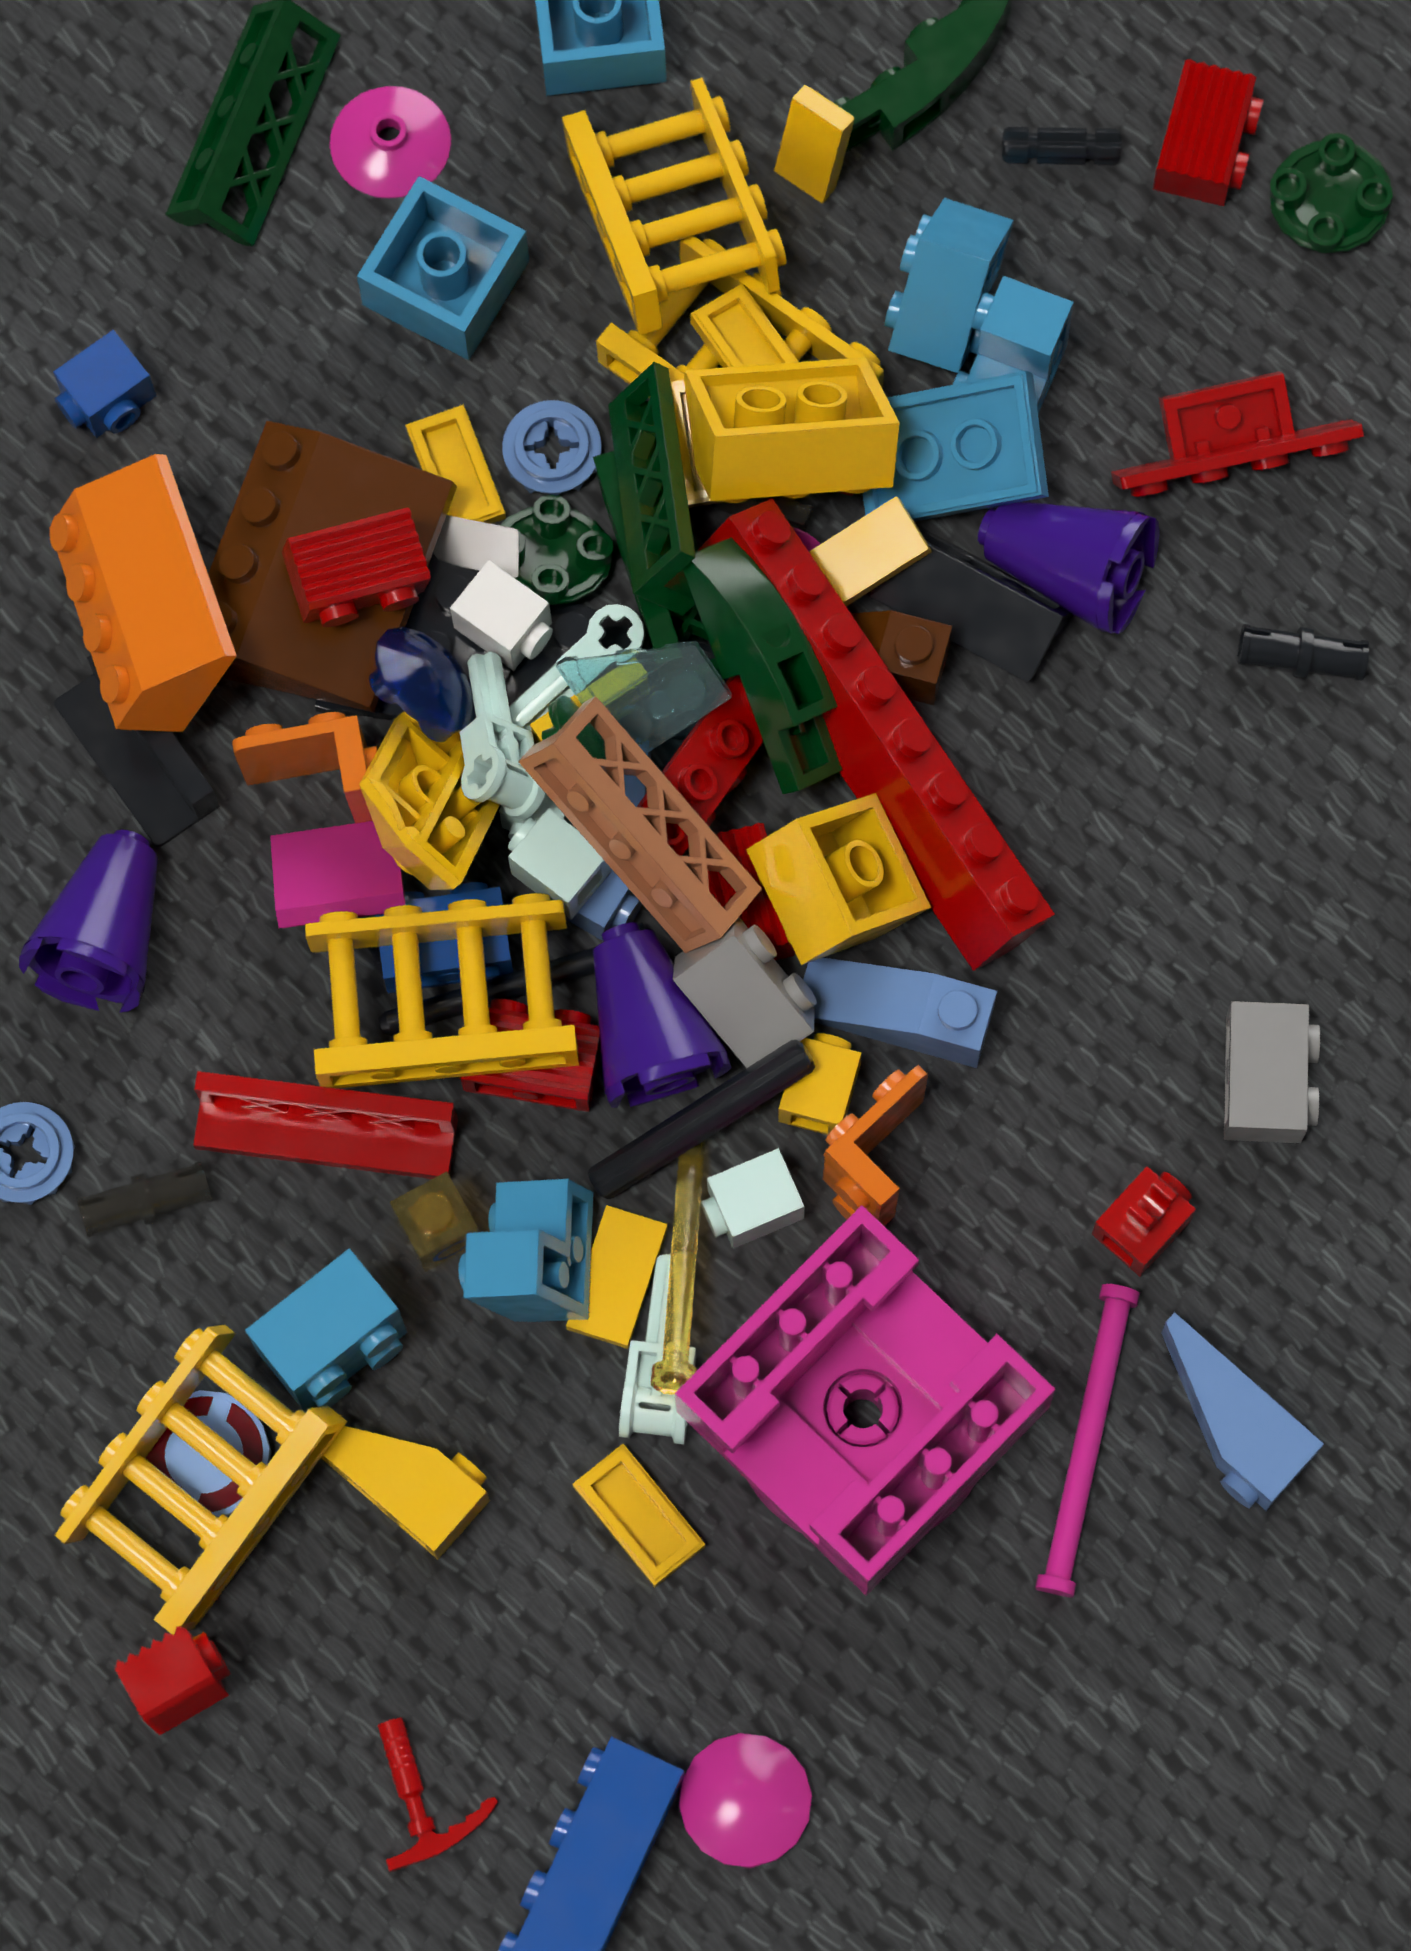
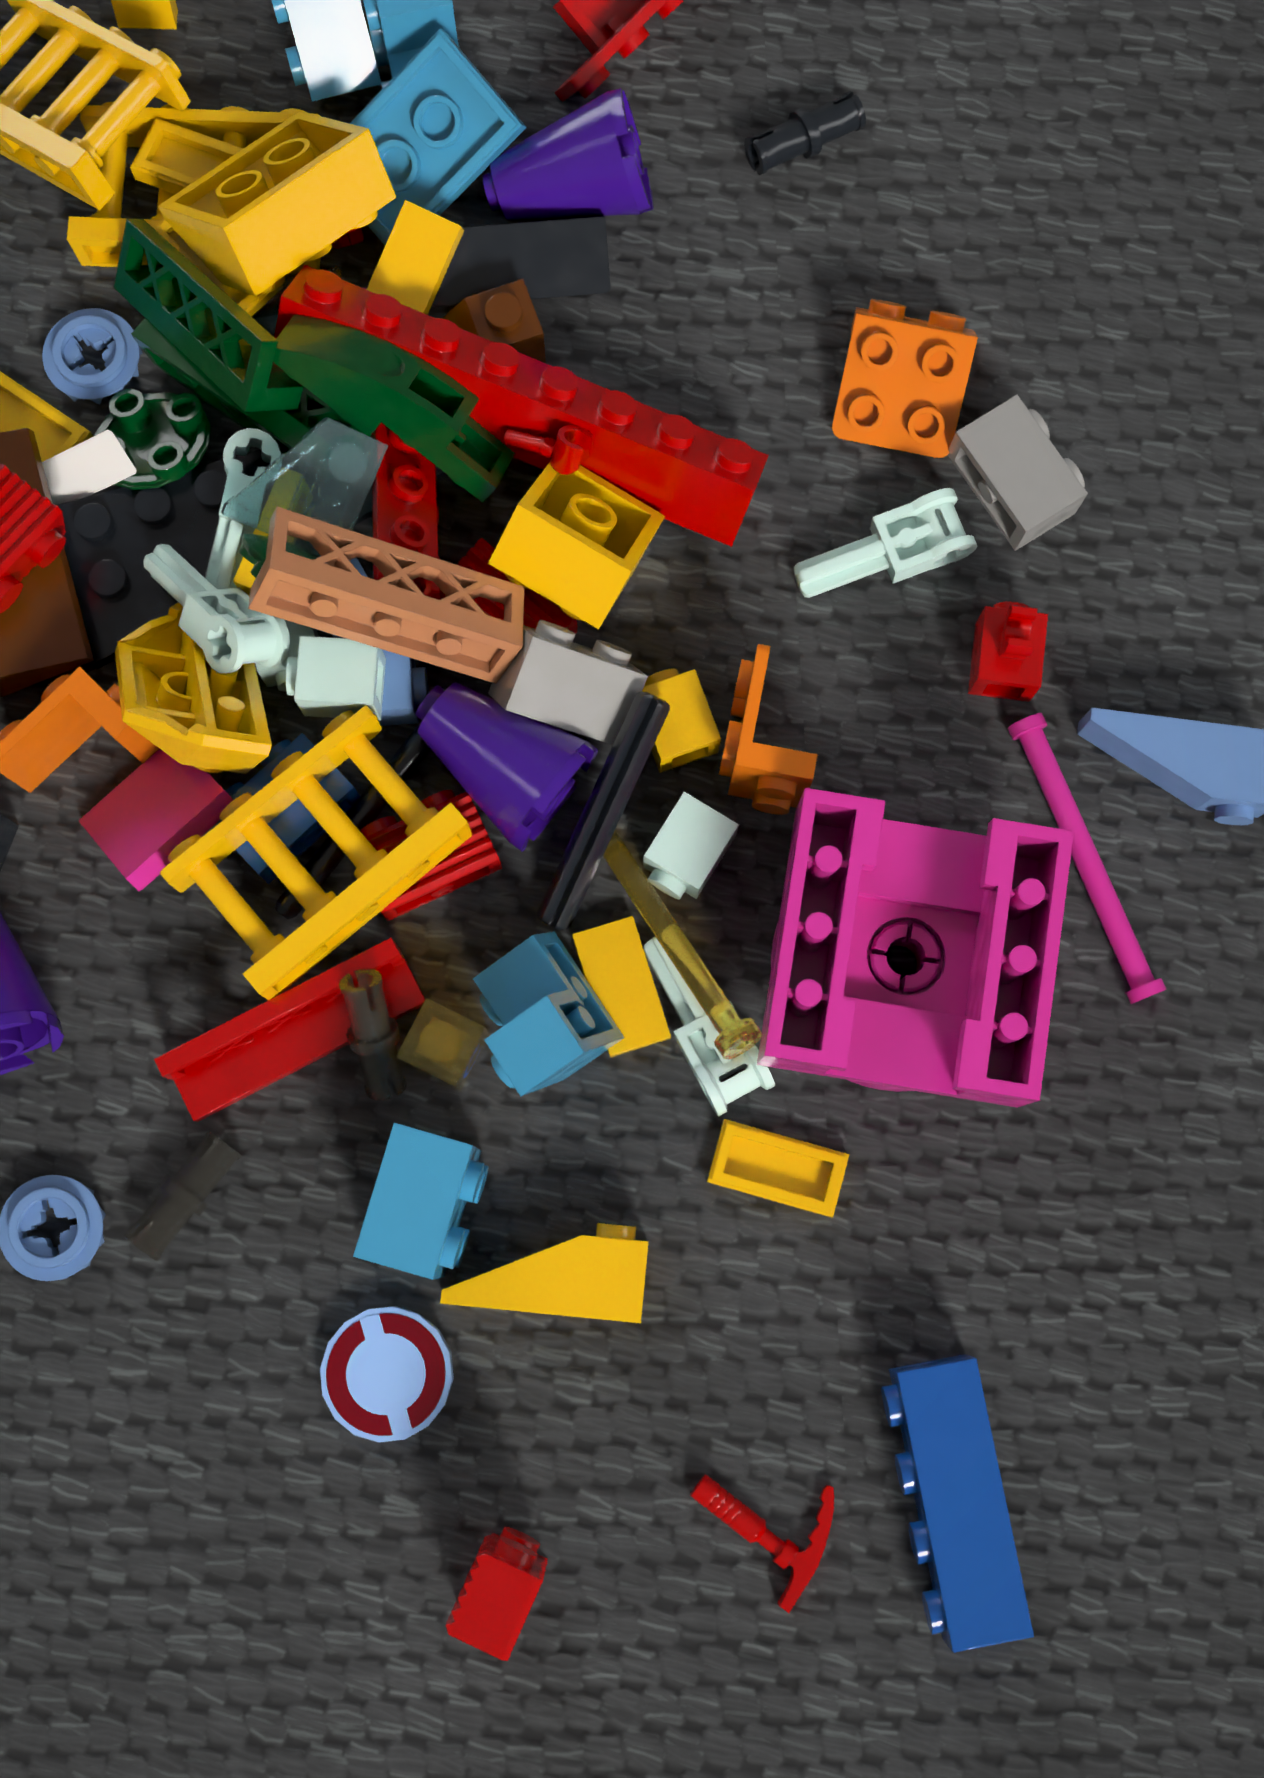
camera: 40 degrees left, 5 degrees up
(262, 1486) = (457, 1374): yellow fence -> none
(384, 1172) = (373, 1034): none -> clear smoke pin
(423, 682) = (117, 604): clear blue dish -> none
(502, 616) = (146, 508): white brick -> none
(745, 1800) = (1031, 1340): dark pink dish -> none
(877, 797) = (566, 452): none -> red hand
(903, 1007) = (701, 611): medium blue slope -> none
(1125, 1067) = (902, 541): none -> light aqua connector
(1230, 923) = (904, 379): none -> orange bracket

